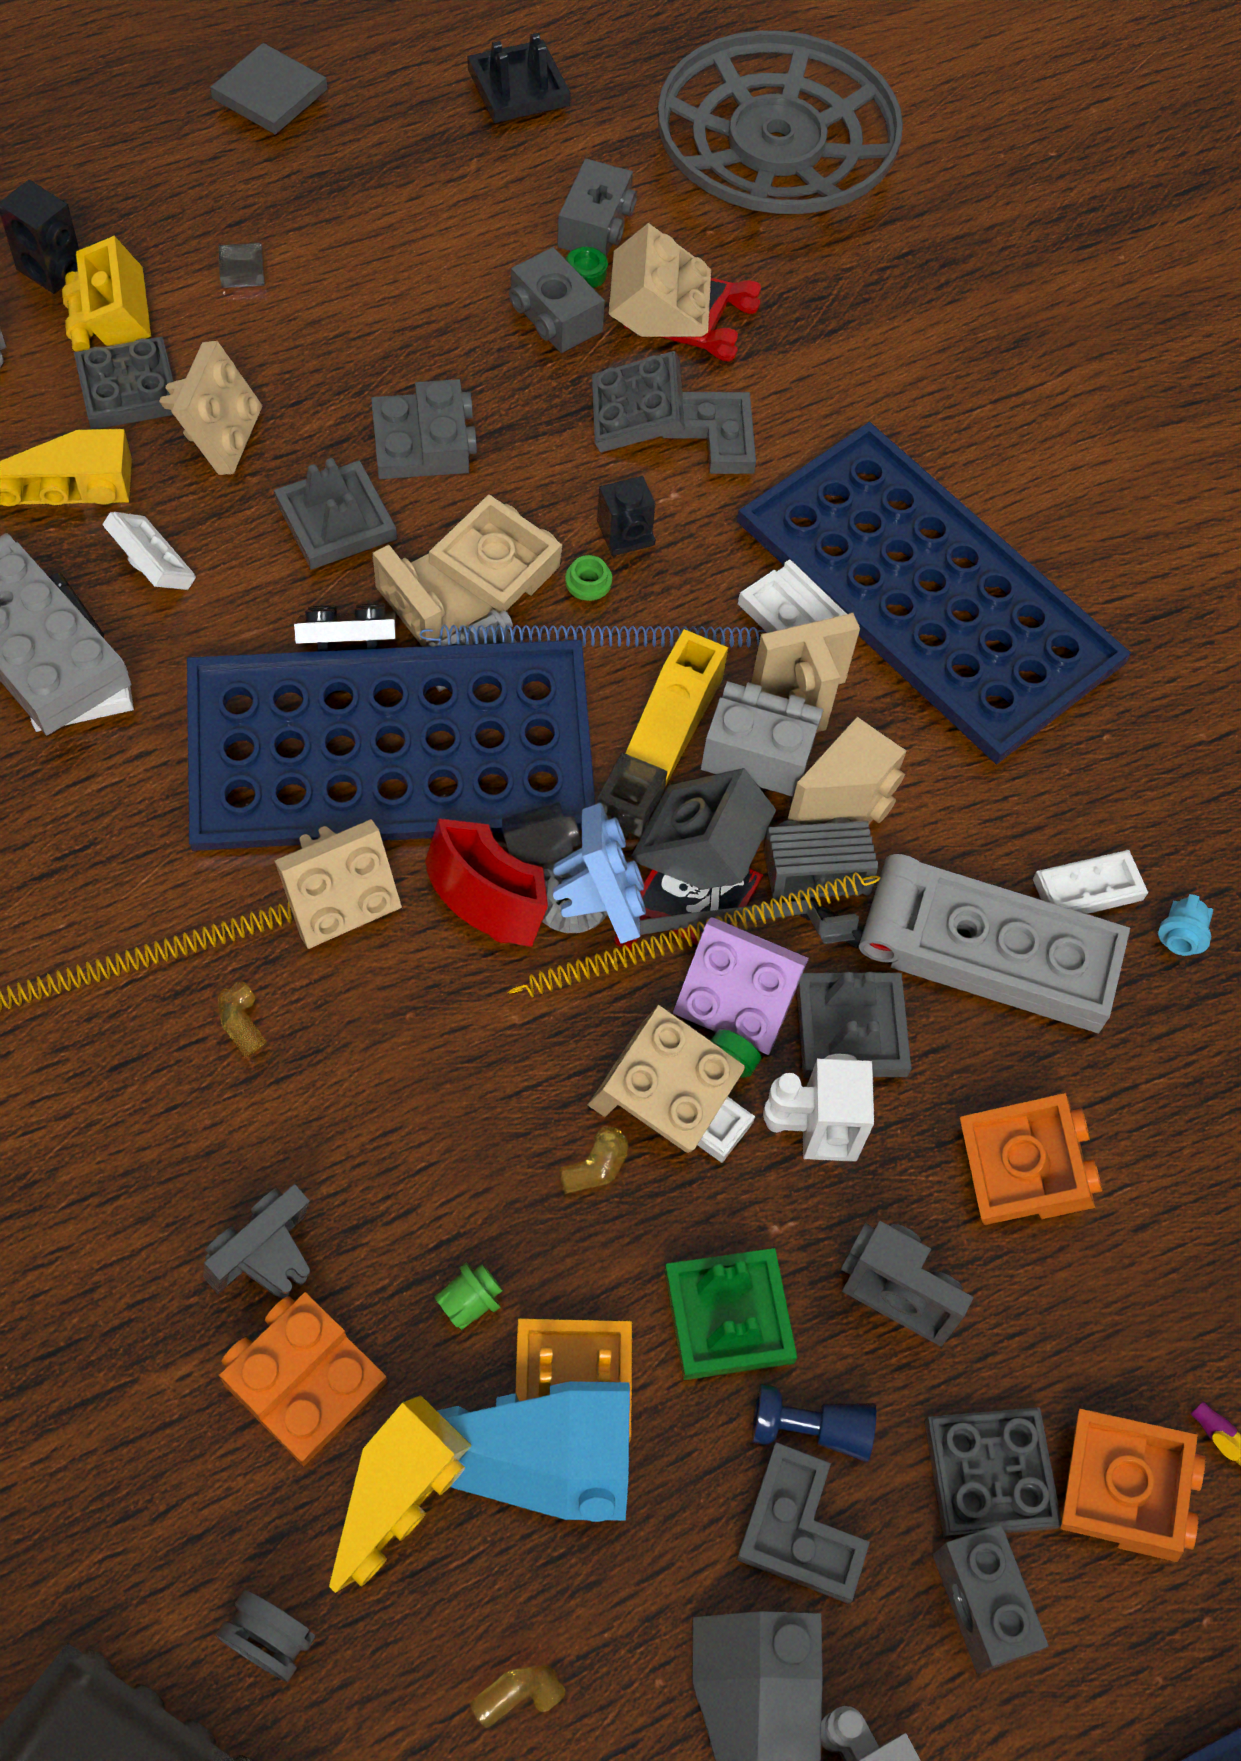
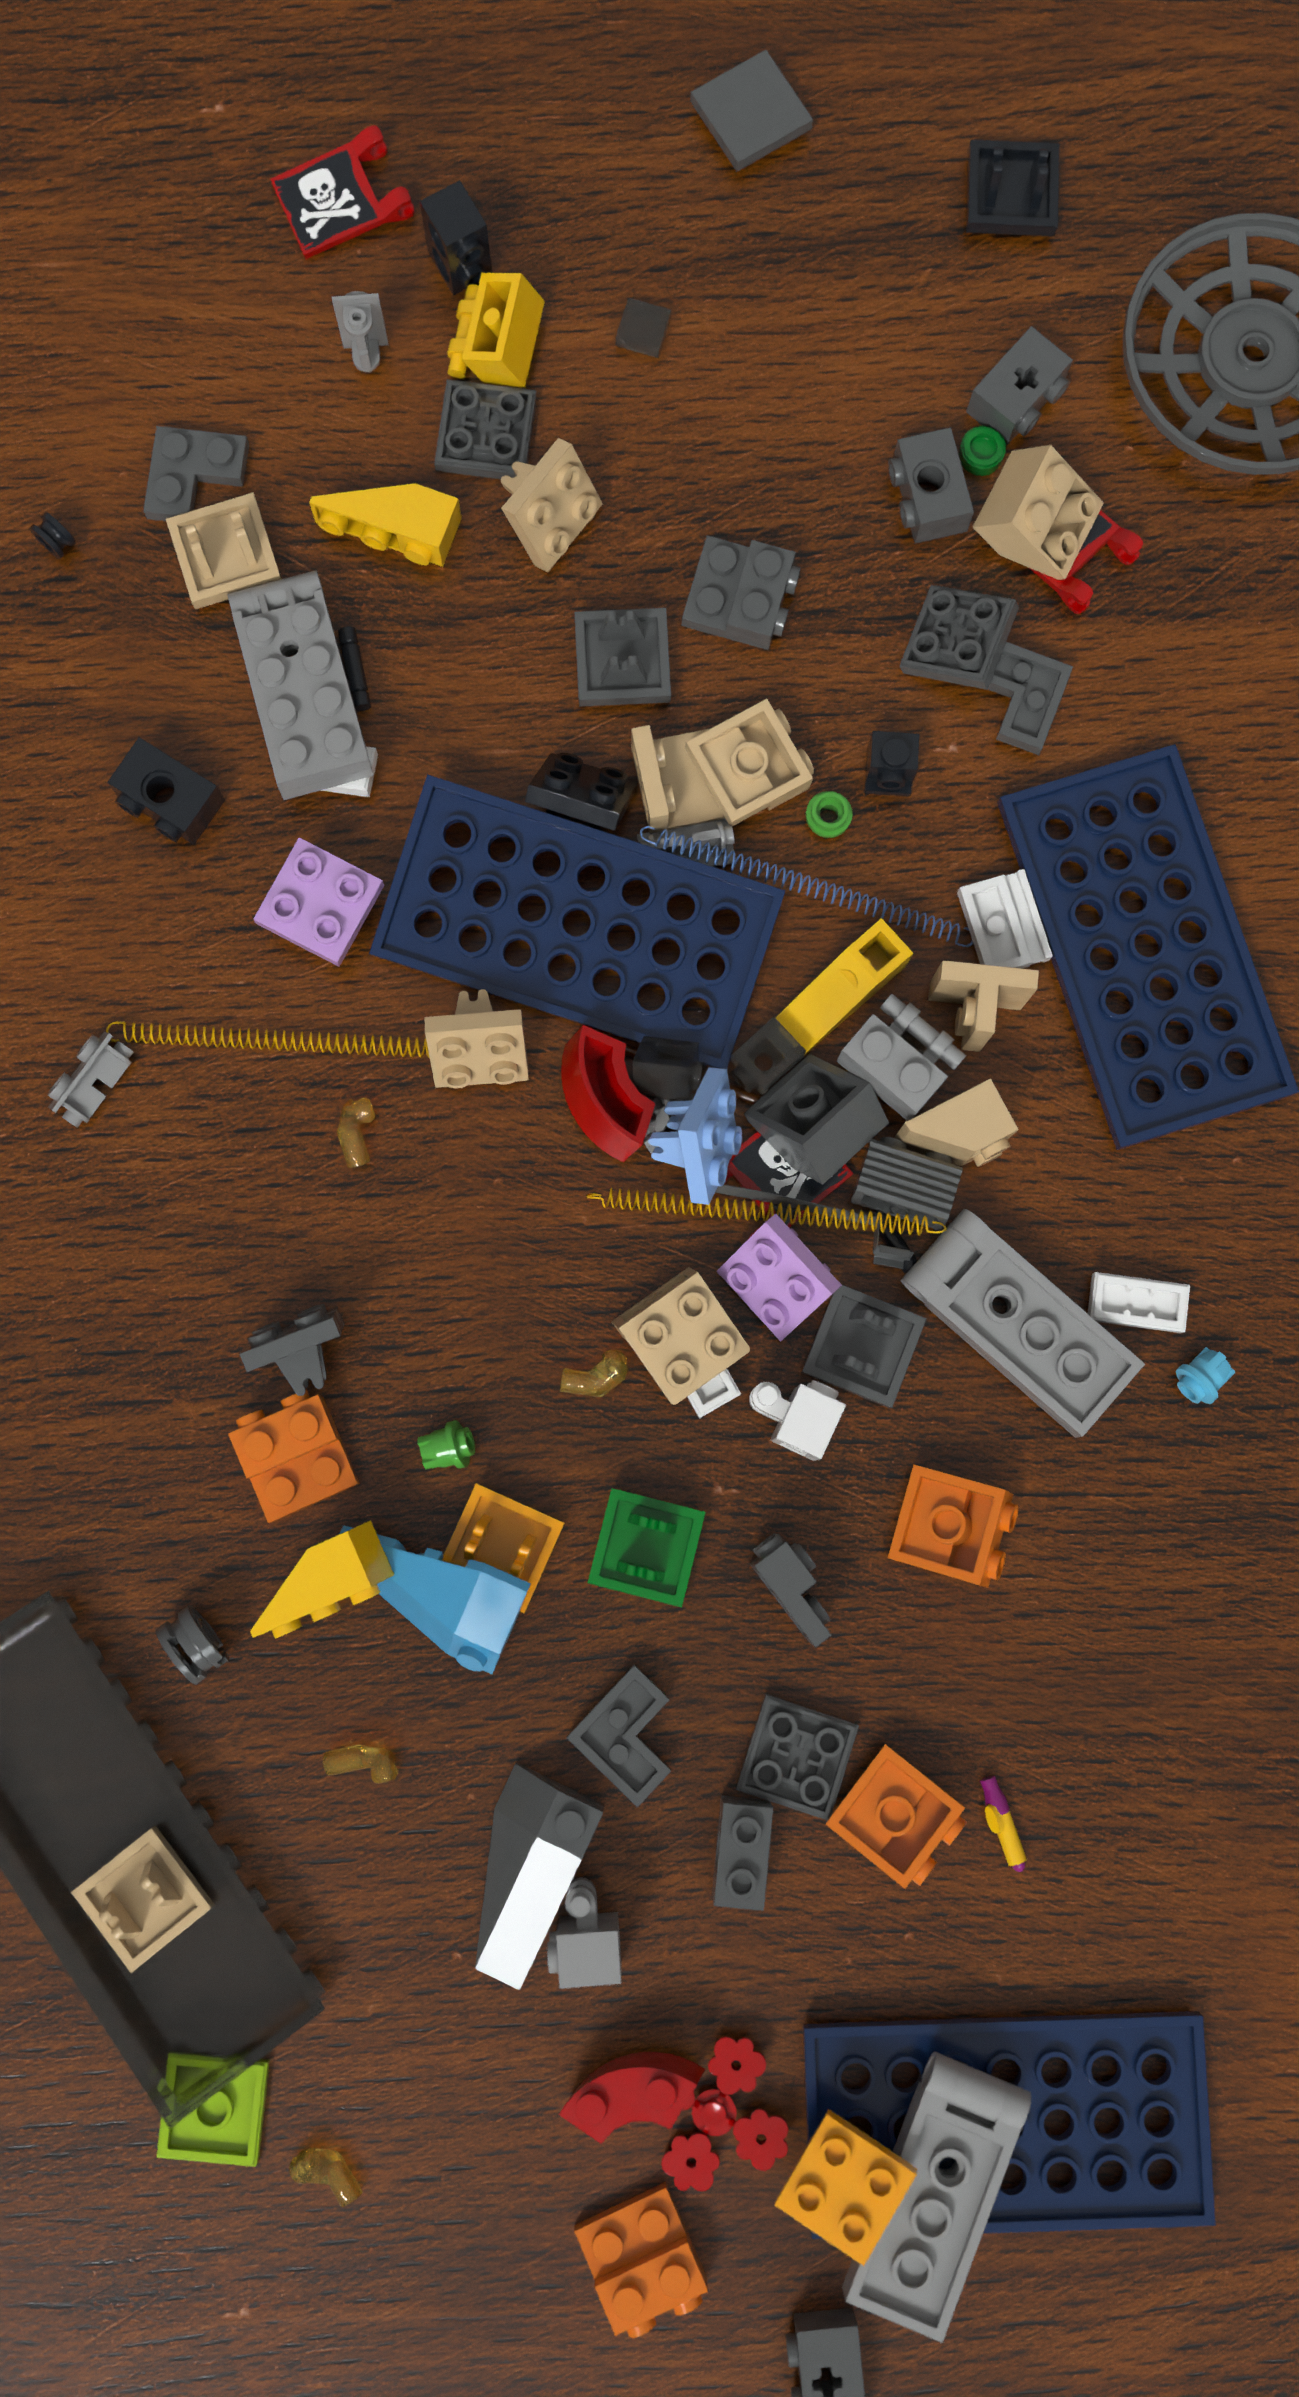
camera: 25 degrees right, 20 degrees up
(119, 807) = (319, 902): none -> lavender plate
(149, 551) = (438, 635): white plate -> none
(739, 1049) = (749, 1331): green tile -> none
(836, 1426) = (688, 1673): dark blue piece -> none

